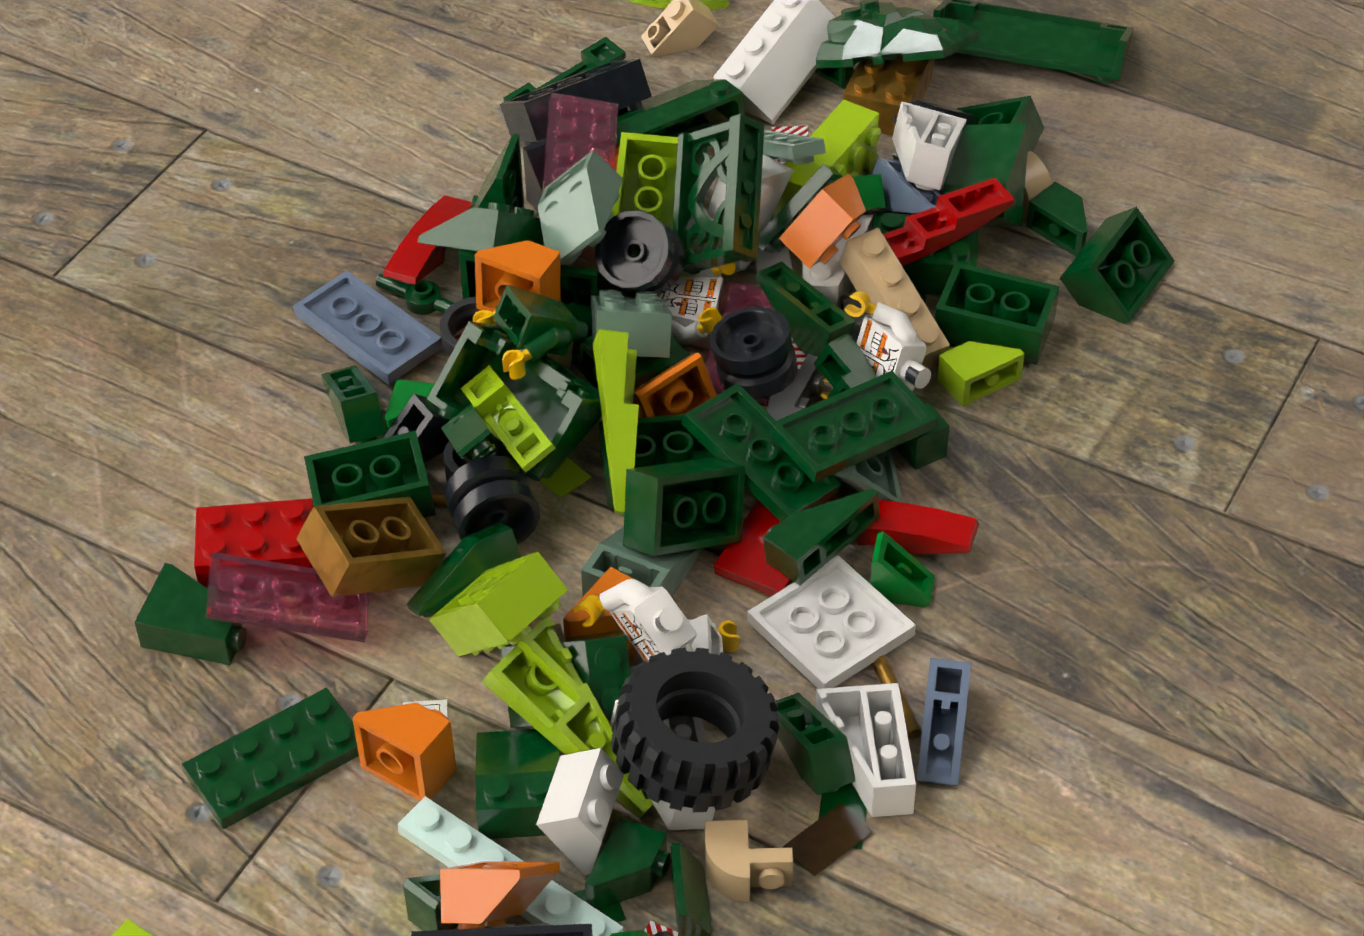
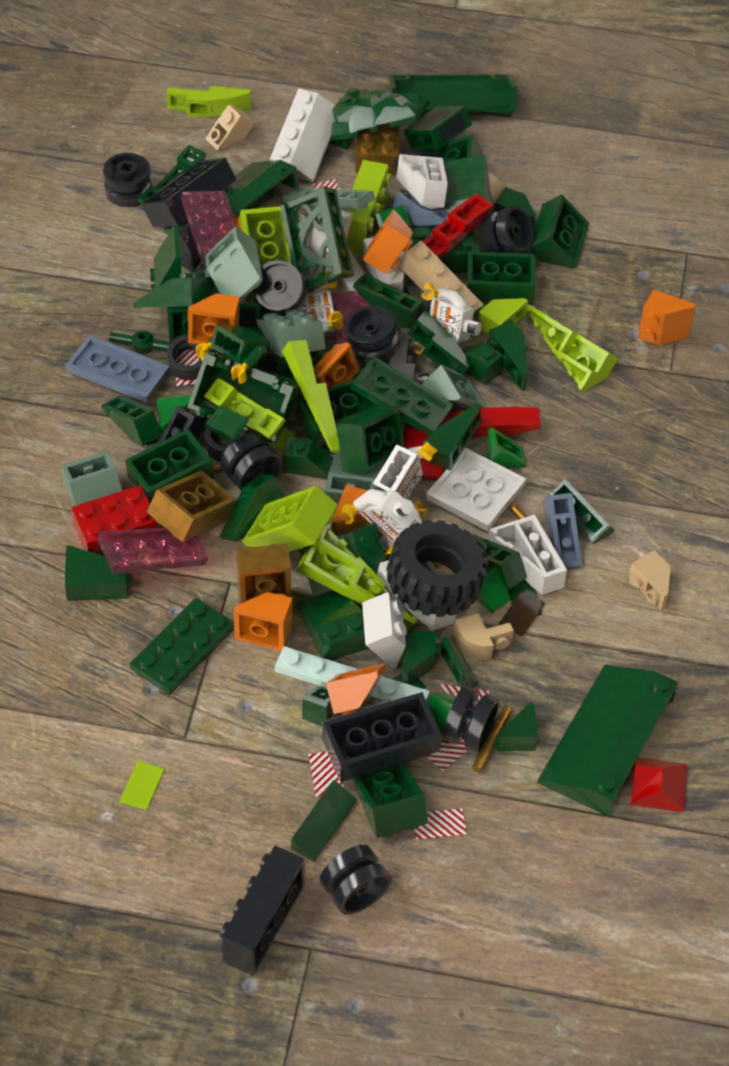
camera: 20 degrees left, 5 degrees up
(248, 471) = (90, 478): none -> sand green slope
(416, 260) = (129, 318): red slope -> none
(427, 669) = (263, 571): none -> pearl gold brick
(497, 65) = (126, 178): none -> black wheel
(580, 513) = (306, 458): none -> dark green slope
(711, 570) = (403, 469): none -> white torso
(769, 238) = (364, 237): dark green plate -> none
(789, 787) = (493, 592): none -> green slope
(852, 426) = (451, 367): dark green plate -> none
(971, 414) = (511, 344): none -> dark green slope
(986, 79) = (438, 127): none -> dark green brick
(993, 702) = (587, 518): none -> dark green slope
(1030, 244) = (507, 231): none -> black wheel
(1065, 833) = (652, 577): none -> tan slope
(1084, 459) = (582, 358): none -> lime wedge
(1237, 427) = (666, 319): none -> orange slope

